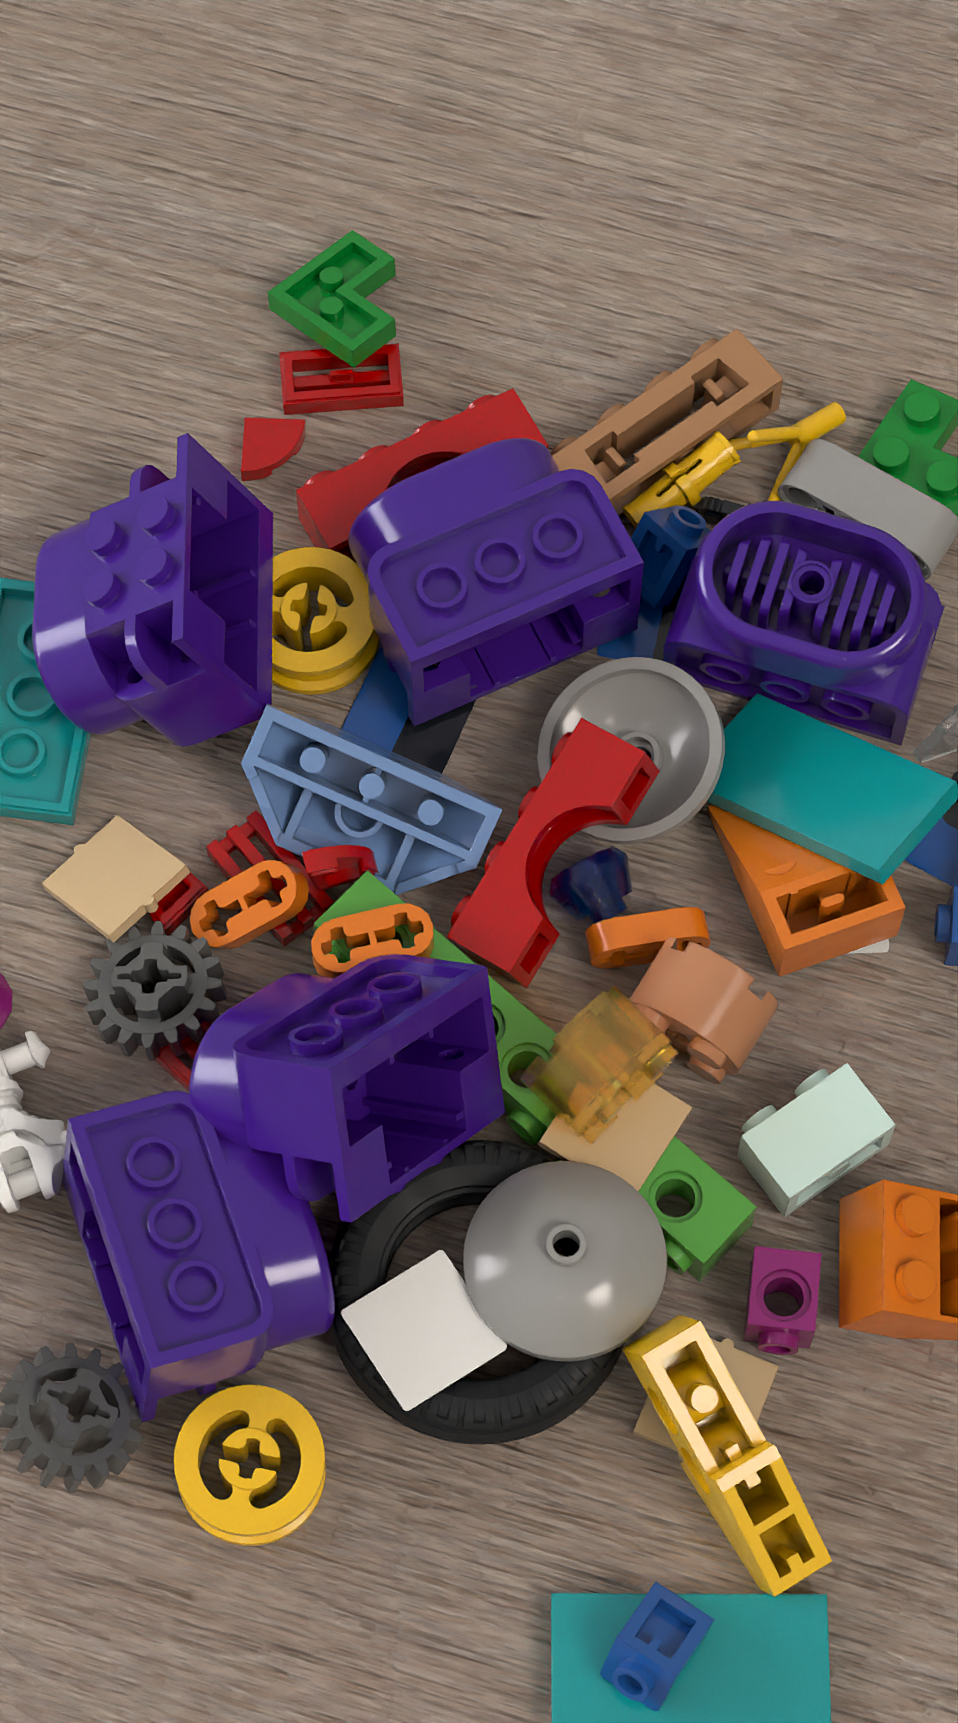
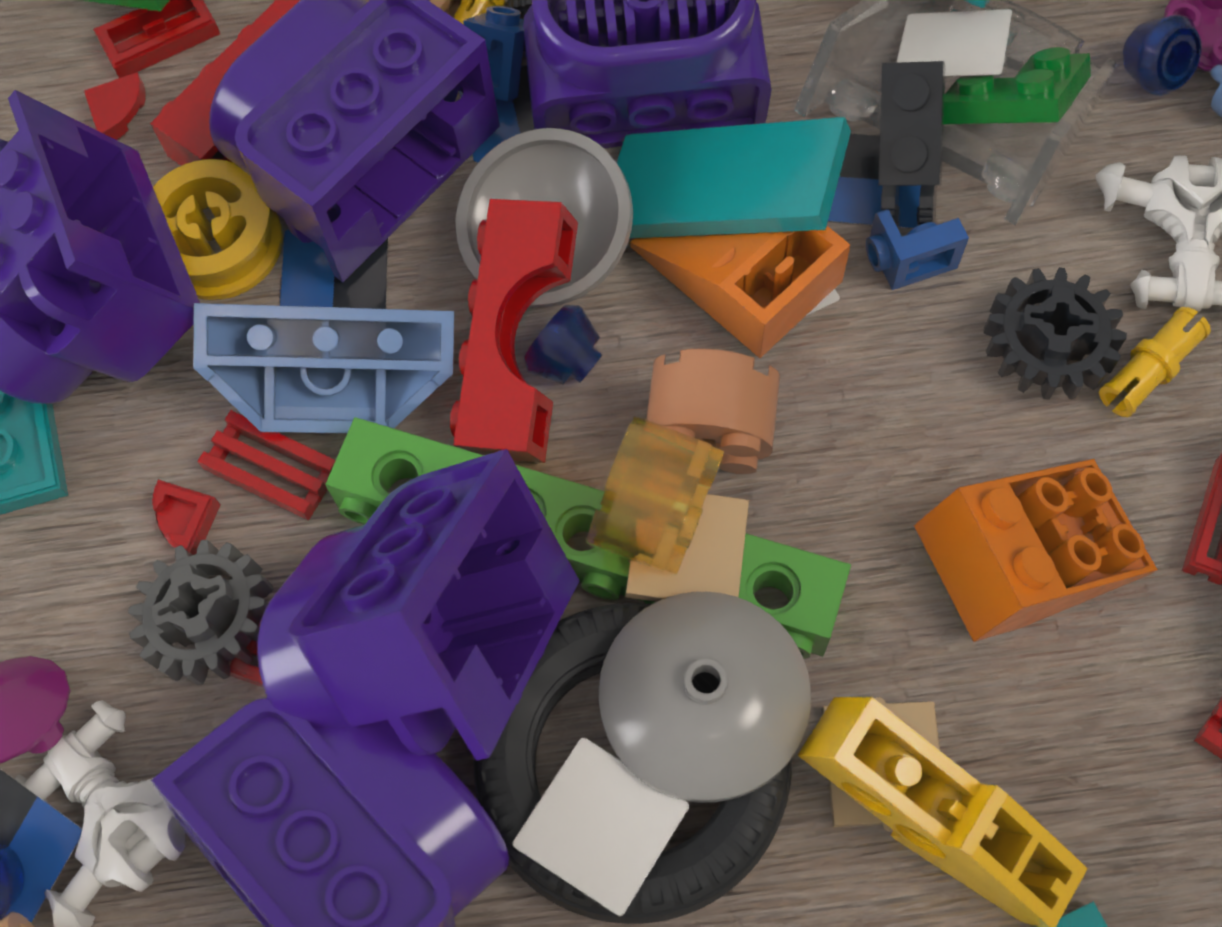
camera: 20 degrees left, 0 degrees up
(115, 878) = (124, 525): tan piece -> none
(242, 893) = (248, 486): orange beam -> none
(338, 864) = (324, 423): red tile -> none
(368, 929) = (382, 472): orange beam -> none
(639, 937) = (627, 372): orange beam -> none
(789, 1273) = (918, 612): magenta brick -> none
(814, 1137) = (867, 480): light aqua brick -> none

